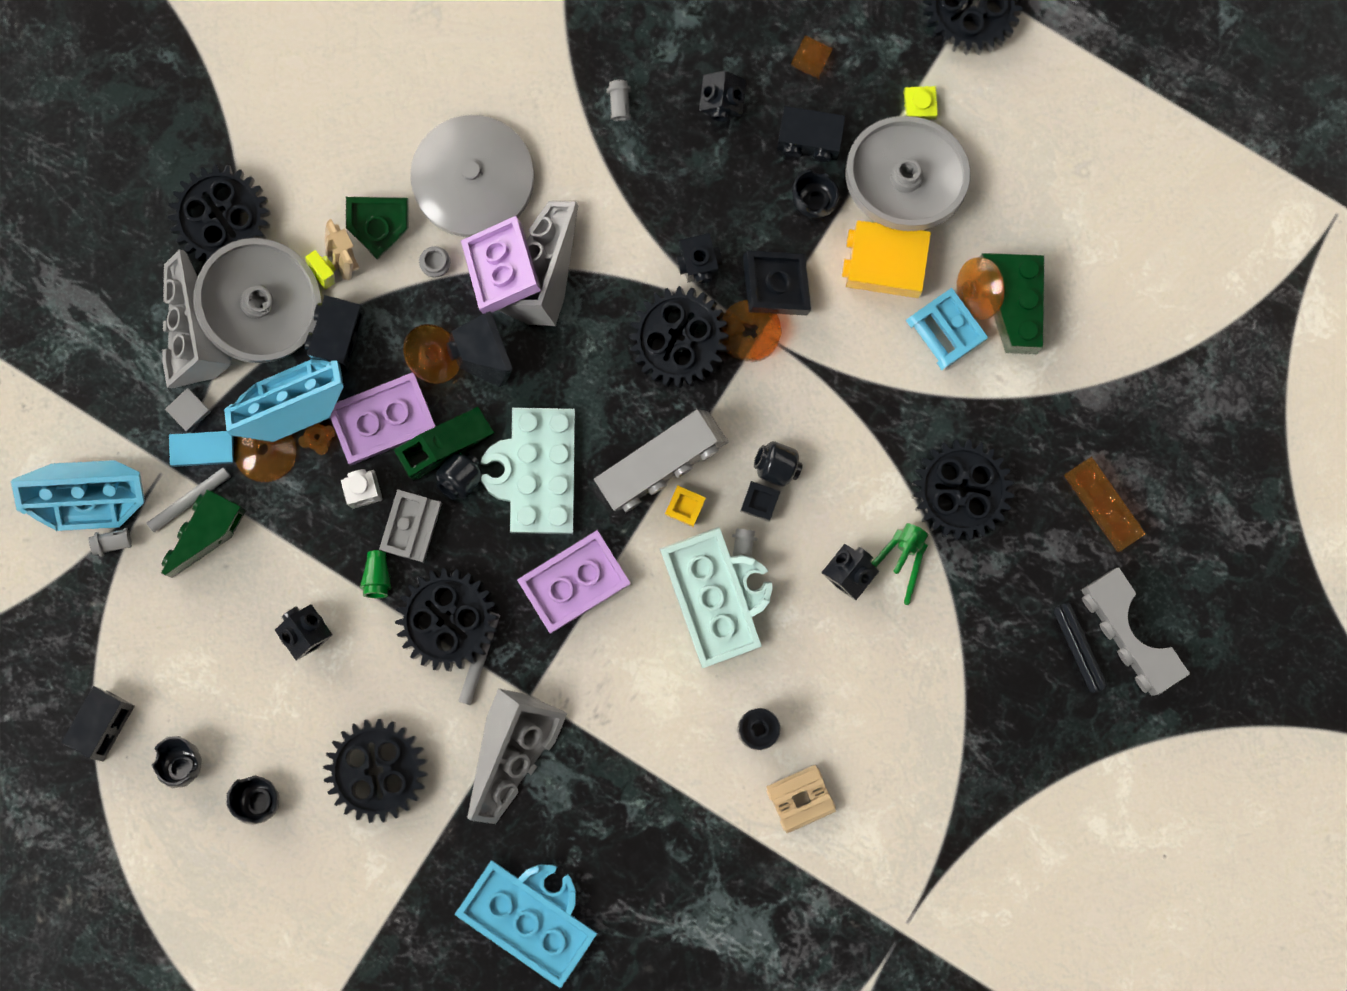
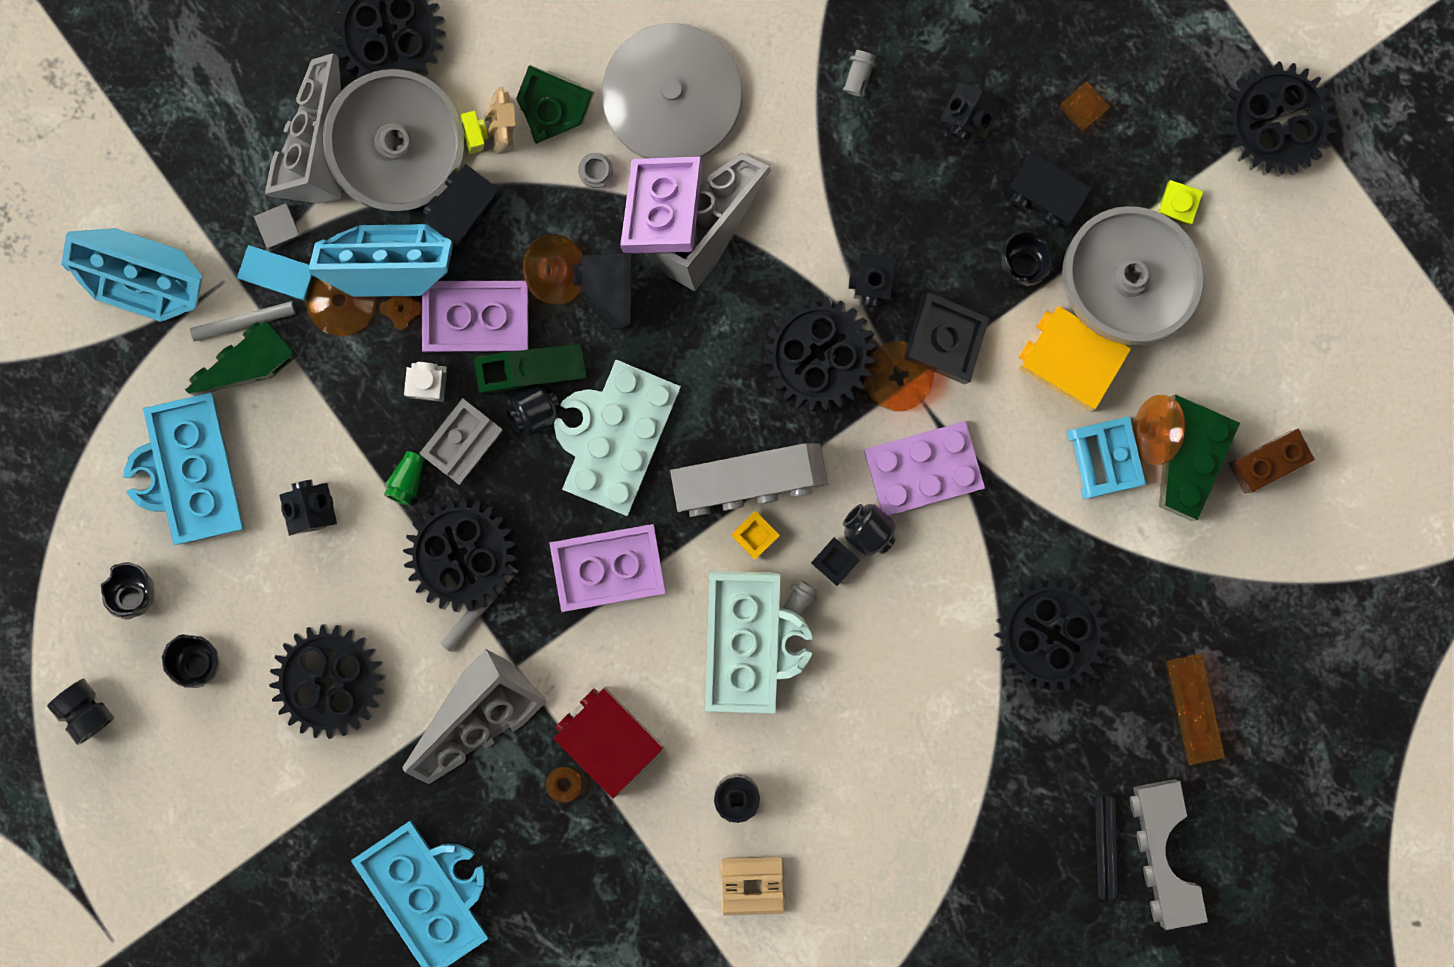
camera: 30 degrees right, 5 degrees up
(98, 724) = (62, 519): black hinge -> none
(109, 541) = (144, 333): light grey pin -> none
(173, 879) = (80, 711): none -> black wheel
(189, 641) = (187, 470): none -> medium azure plate
(619, 777) = (555, 792): none -> clear orange plate
(631, 725) = (607, 741): none -> dark red brick
(802, 397) = (924, 468): none -> lavender plate
(851, 571) = (900, 672): black brick -> none
(910, 541) = (976, 666): green plant -> none
(1081, 278) = (1271, 461): none -> reddish brown brick

